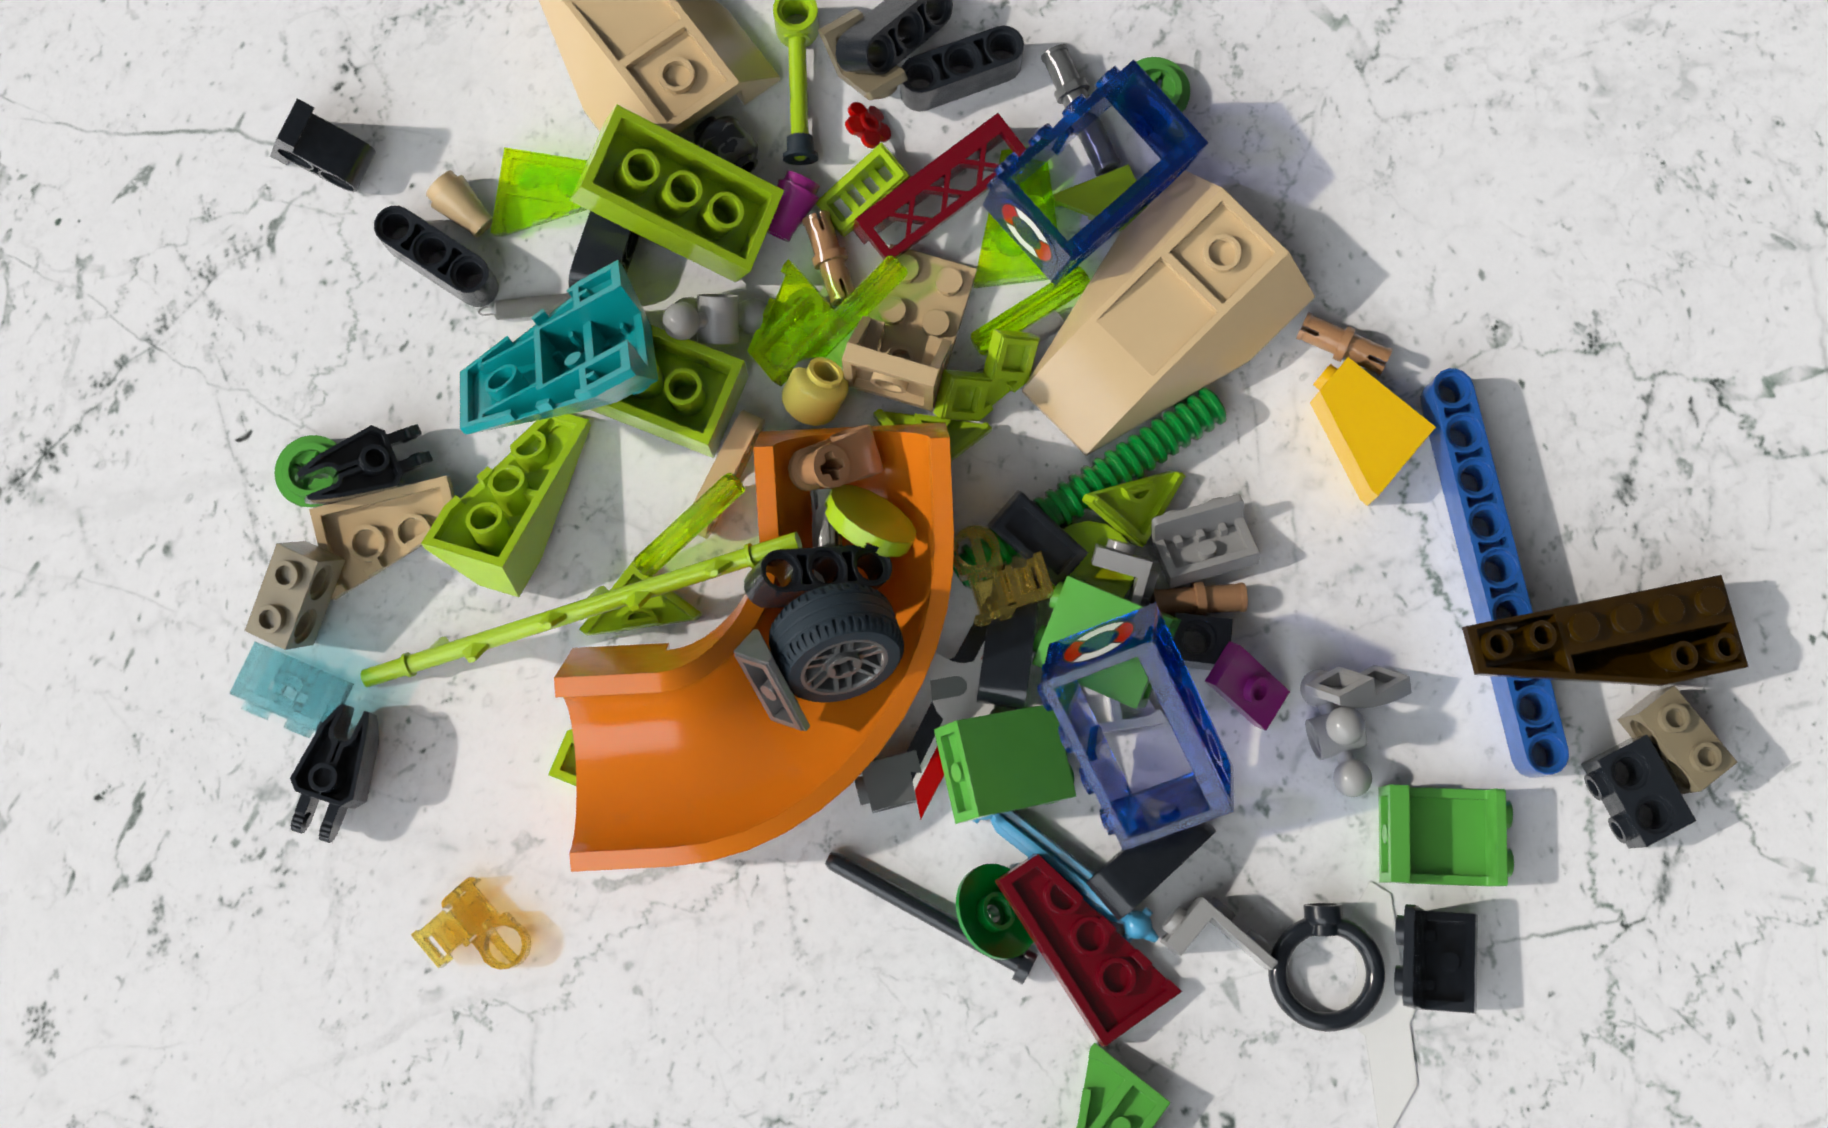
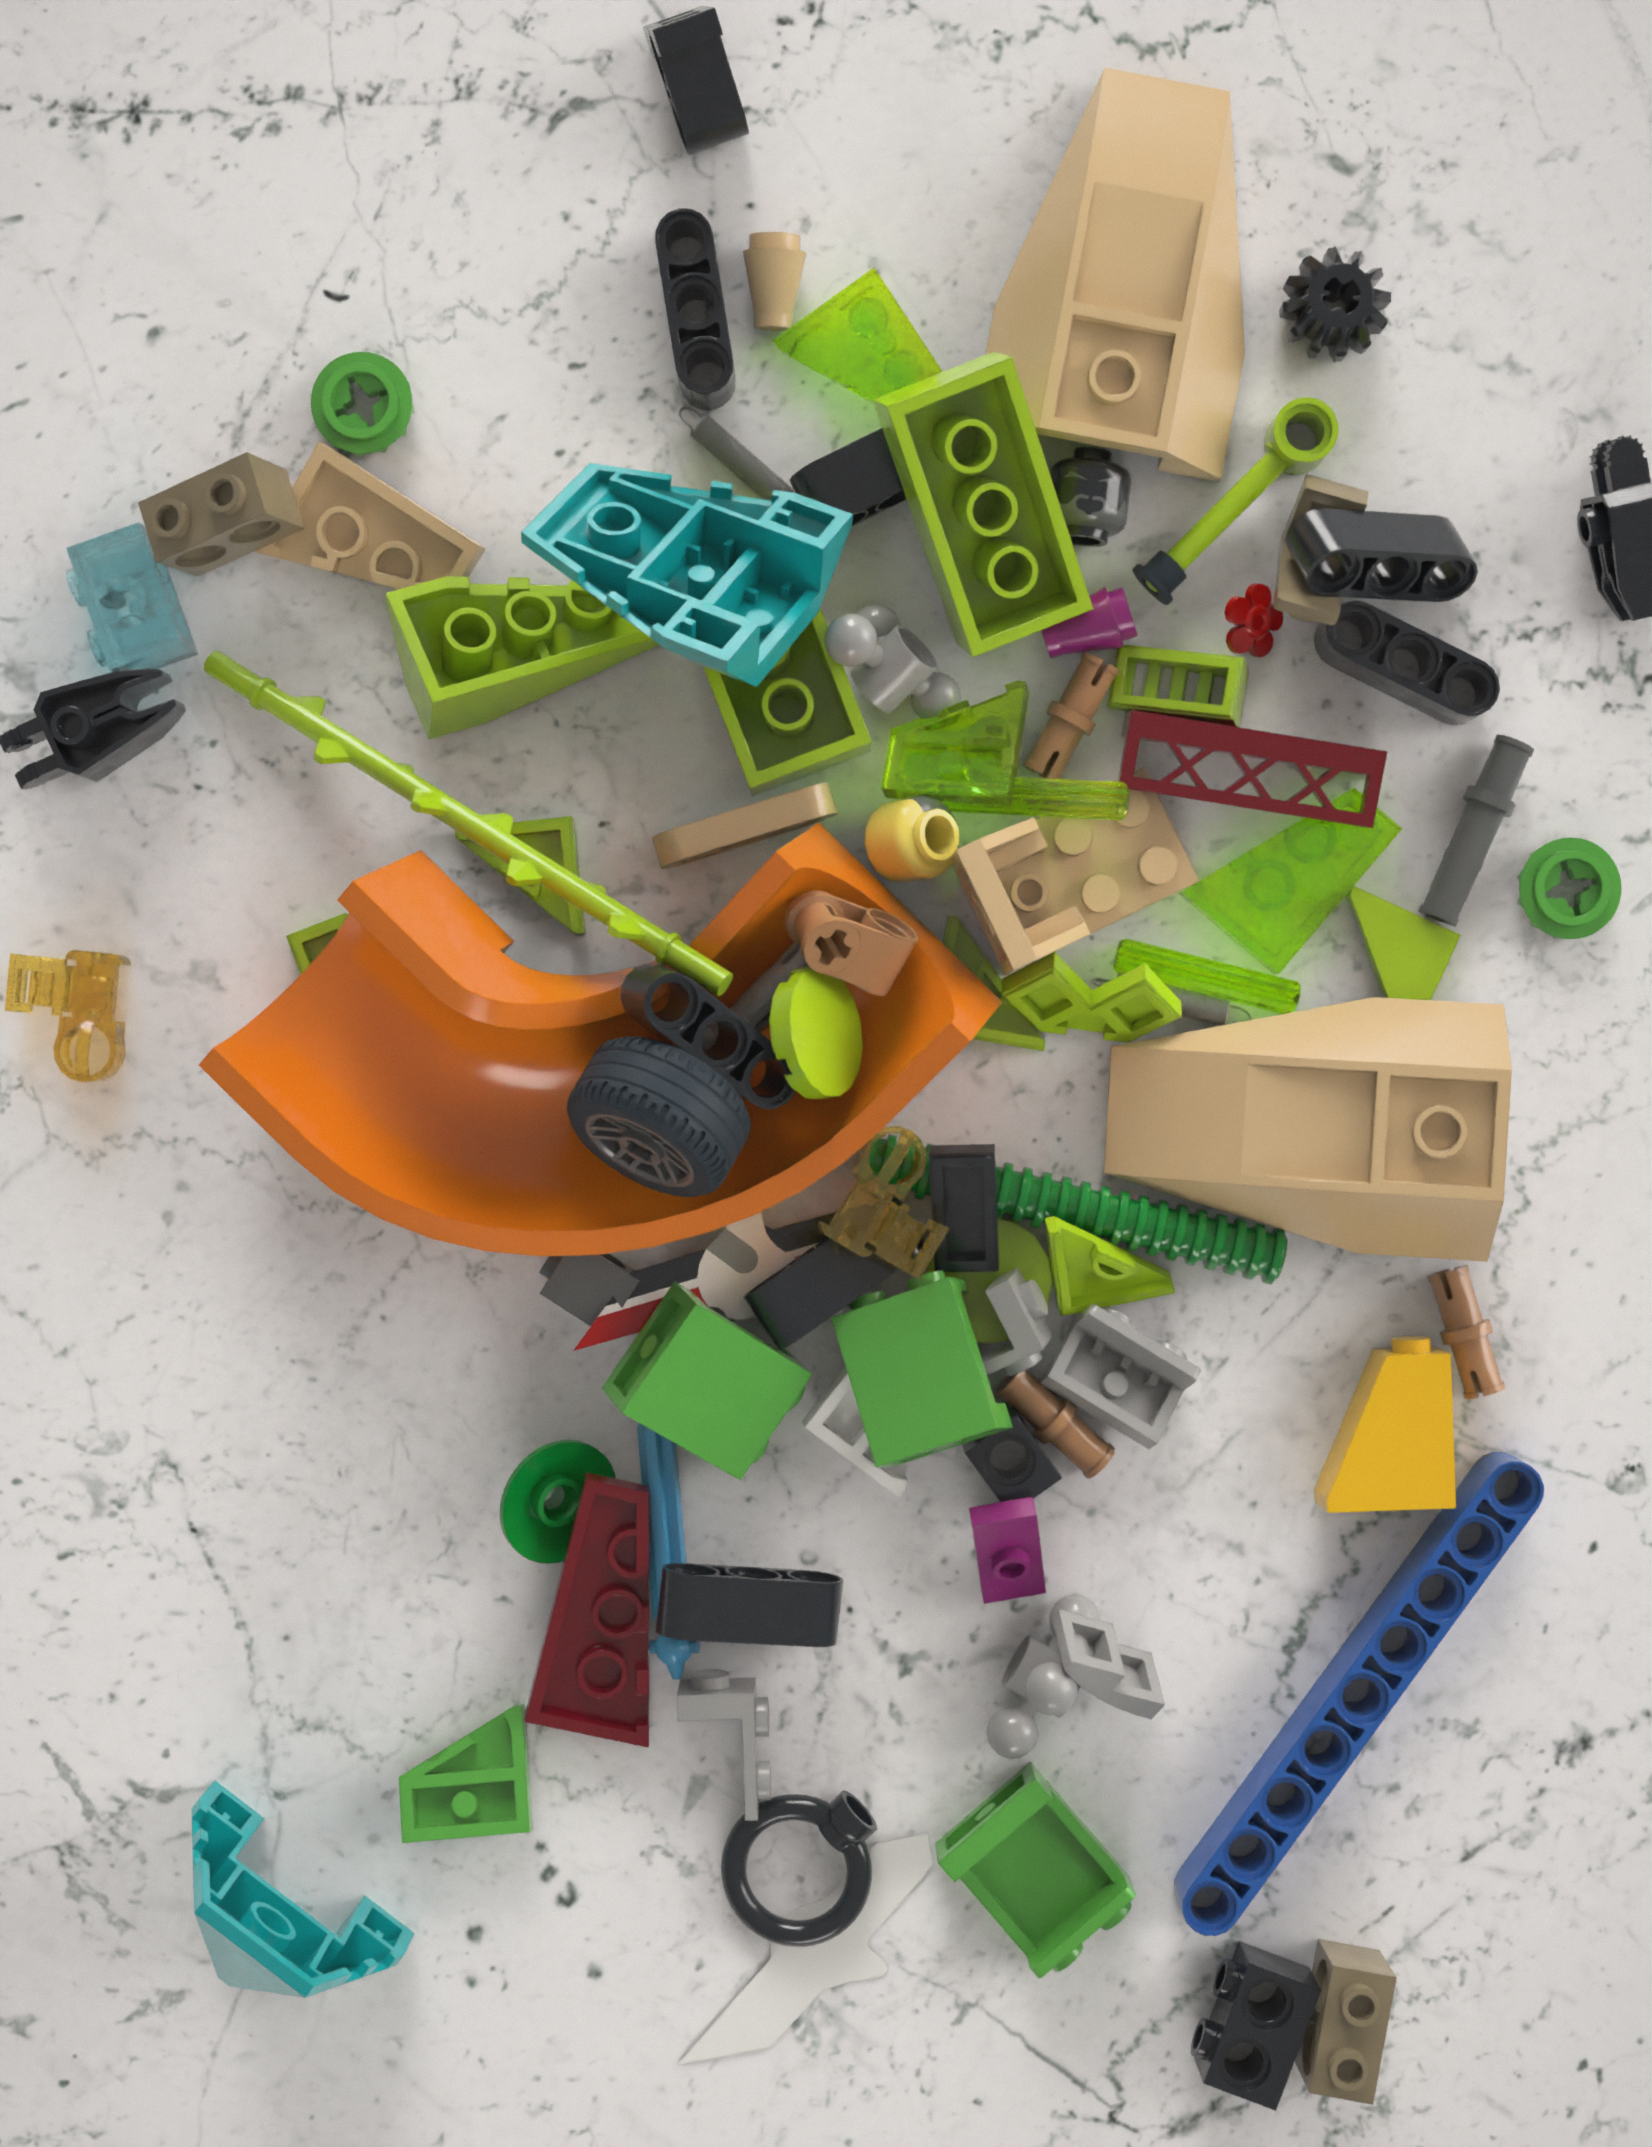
camera: 50 degrees right, 10 degrees up
(363, 464) = (411, 453): black hinge -> none
(689, 525) = (654, 844): clear neon green axle -> none
(769, 682) = (562, 1066): flat silver slope -> none
(919, 908) = (492, 1414): black bar -> none
(1152, 118) = (1525, 936): clear blue hose -> none
(1163, 807) = (801, 1575): clear blue hose -> none
(1437, 960) = (904, 1971): black bracket -> none
(1620, 639) = (1391, 1882): dark brown wedge -> none

